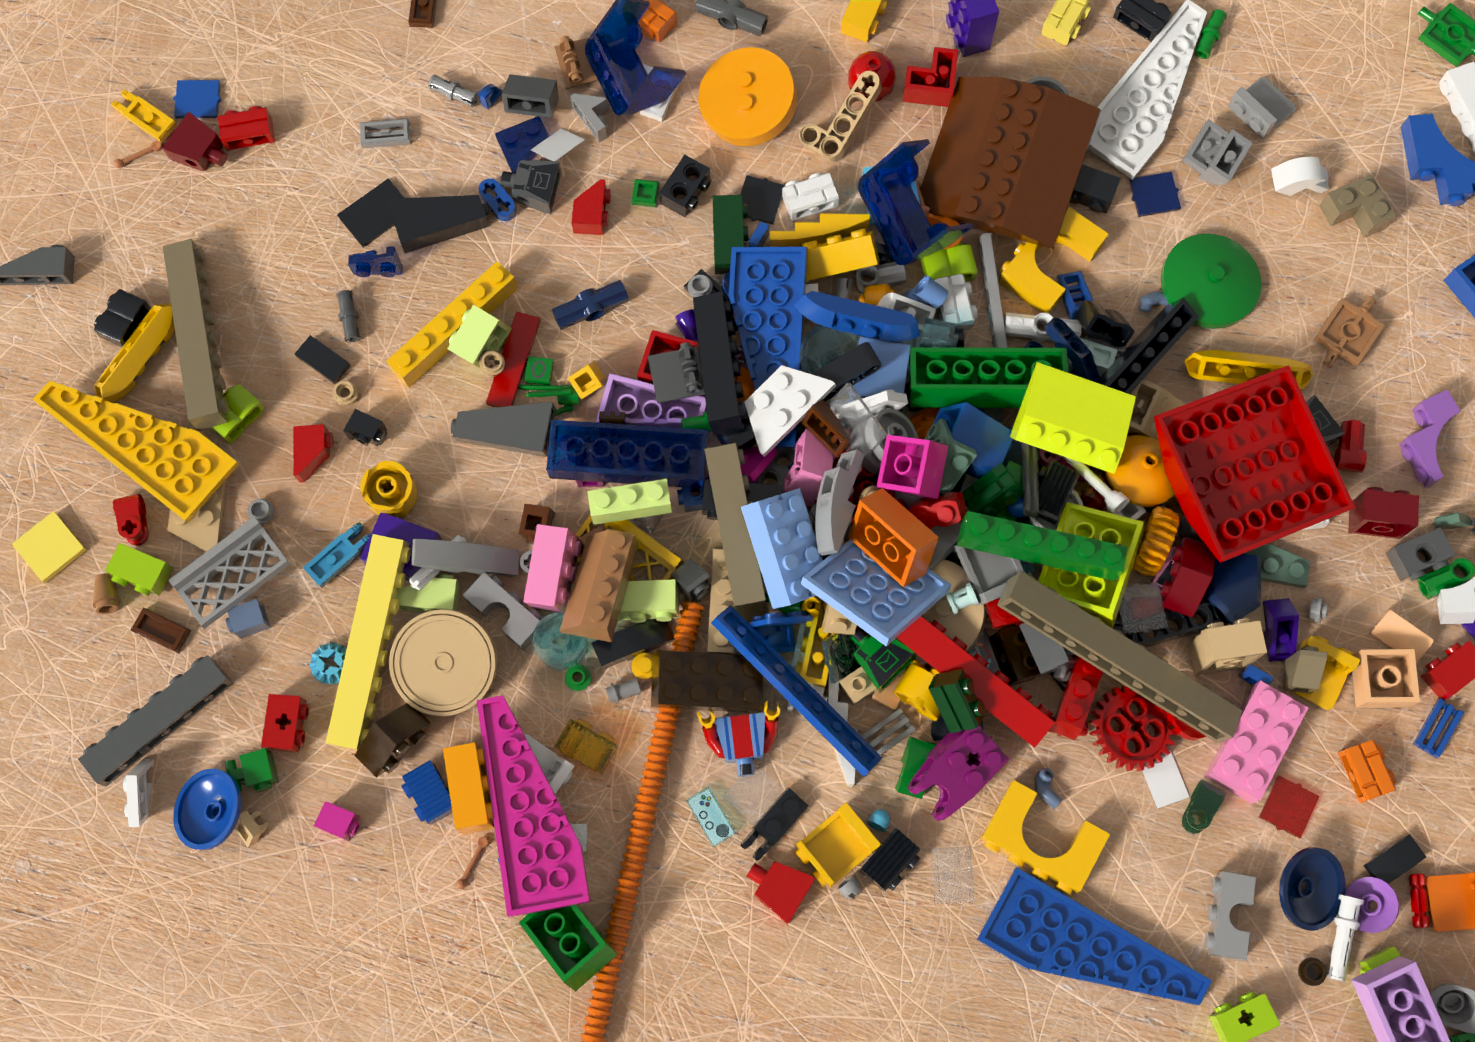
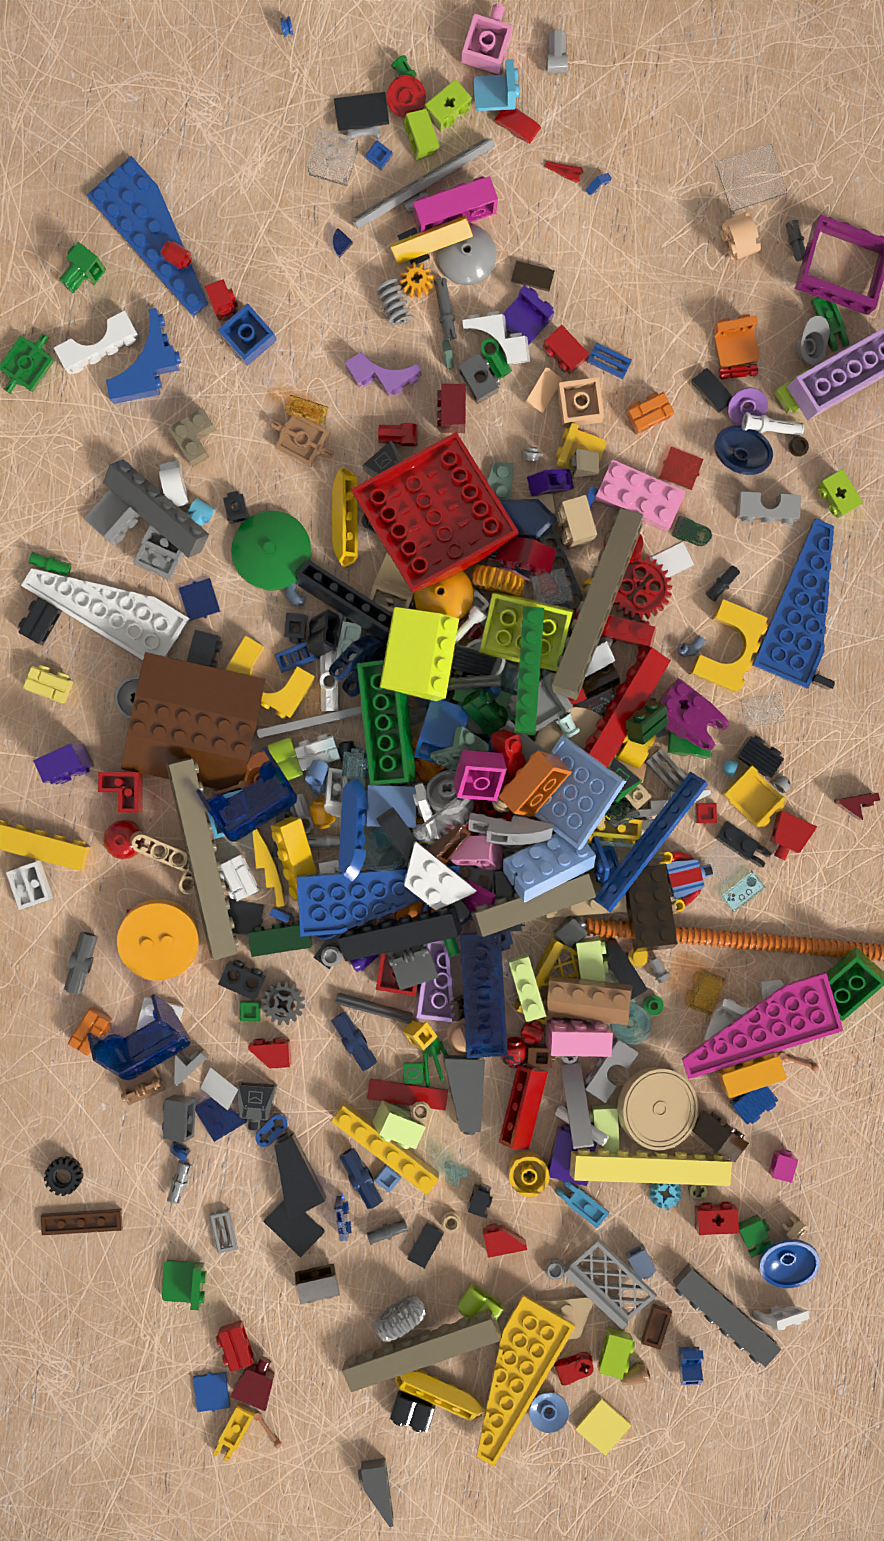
camera: 100 degrees left, 15 degrees up
(75, 472) = (549, 1421): none -> medium blue dish
(101, 664) = (690, 1365): none -> blue brick
(240, 312) = (399, 1318): none -> light grey gear
(301, 225) = (317, 1283): none -> brick
(320, 699) = (702, 1195): none -> olive bush
(332, 82) = (184, 1282): none -> green bracket
(405, 402) = (454, 1172): none -> clear light blue tile
(412, 323) = (387, 1178): none -> medium blue tile
(419, 293) = (361, 1178): none -> dark blue piece
(474, 494) = (523, 1107): none -> red brick
(545, 492) = (516, 1052): none -> red head
(568, 516) = (532, 1032): none -> red gear
(627, 333) = (374, 1008): none -> dark grey axle
(654, 219) = (278, 996): none -> dark grey gear
(812, 980) = (853, 804): none -> dark red slope
(822, 780) = (706, 812): none -> red tile
(836, 150) = (201, 858): none -> dark tan brick
(984, 960) = (823, 682): none -> black tile
(1119, 291) = (292, 620): none -> black brick
(1130, 842) = (723, 583): none -> black axle
(1261, 203) = (200, 512): none -> medium azure piece
(1261, 250) = (239, 514): none -> black brick
(1272, 149) = (155, 508): none -> dark grey brick
(1387, 341) = (308, 409): none -> clear yellow hinge

